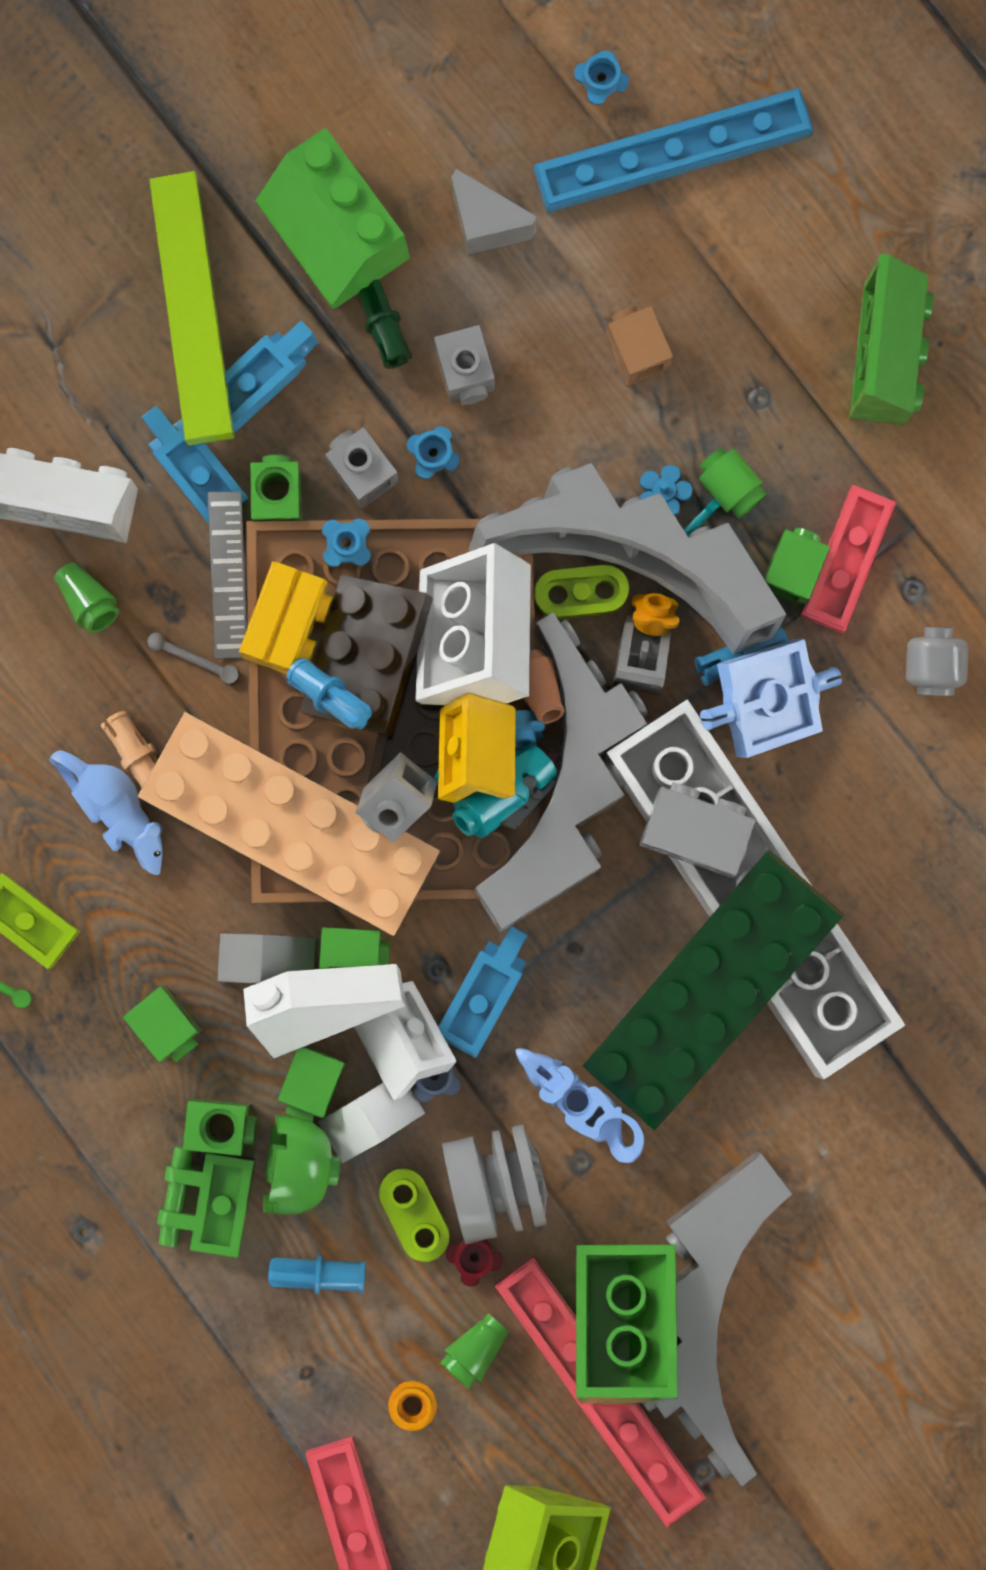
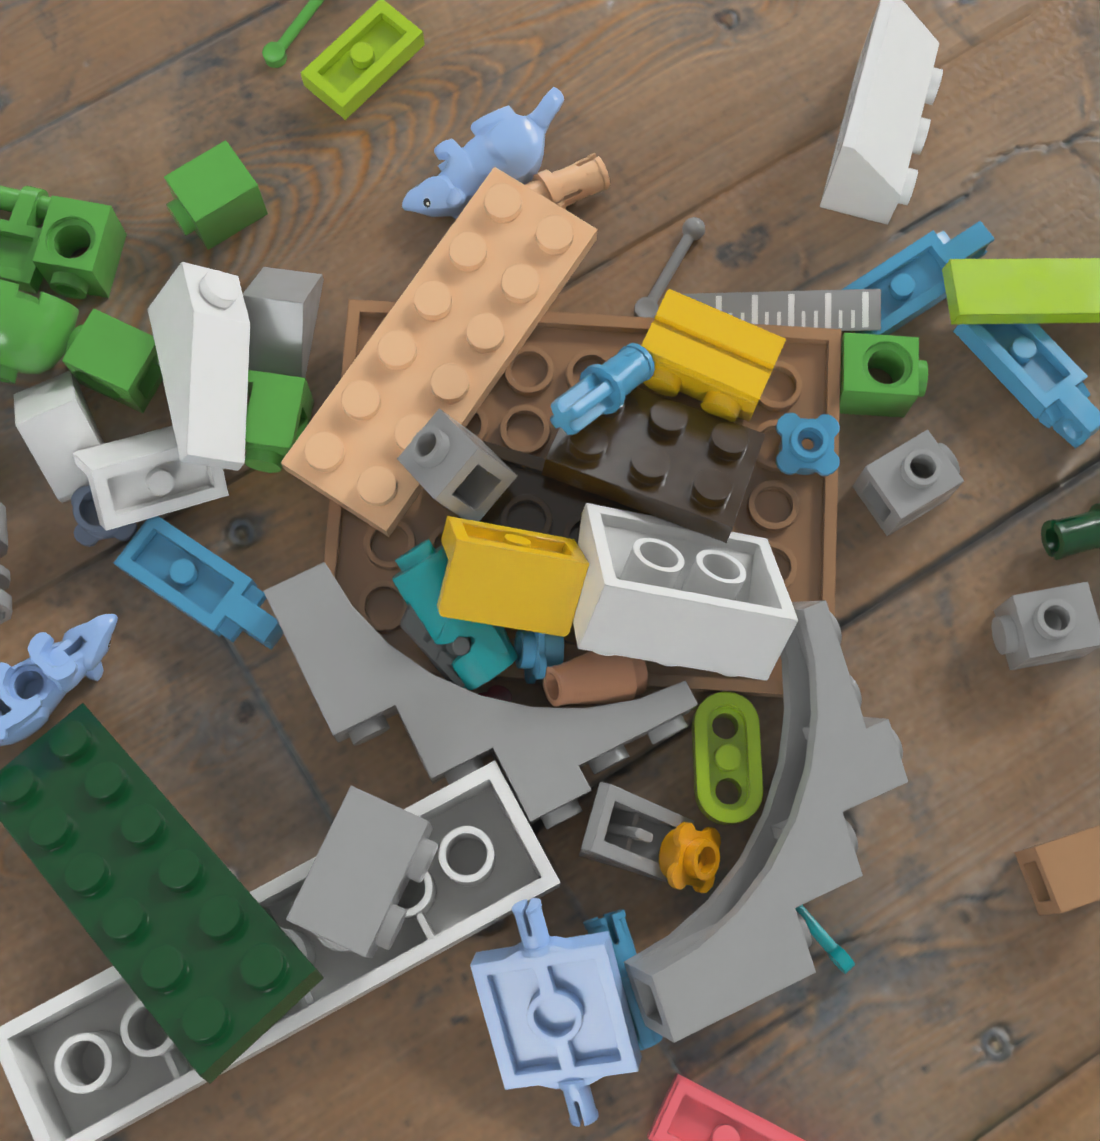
camera: 95 degrees right, 10 degrees down
(87, 599) = (750, 149): bright green cone -> none
(434, 439) = (939, 566): dark azure plate -> none
(668, 486) = (868, 895): dark azure plant -> none
(732, 482) = (875, 987): bright green brick -> none
(796, 565) = (749, 1071): bright green brick -> none

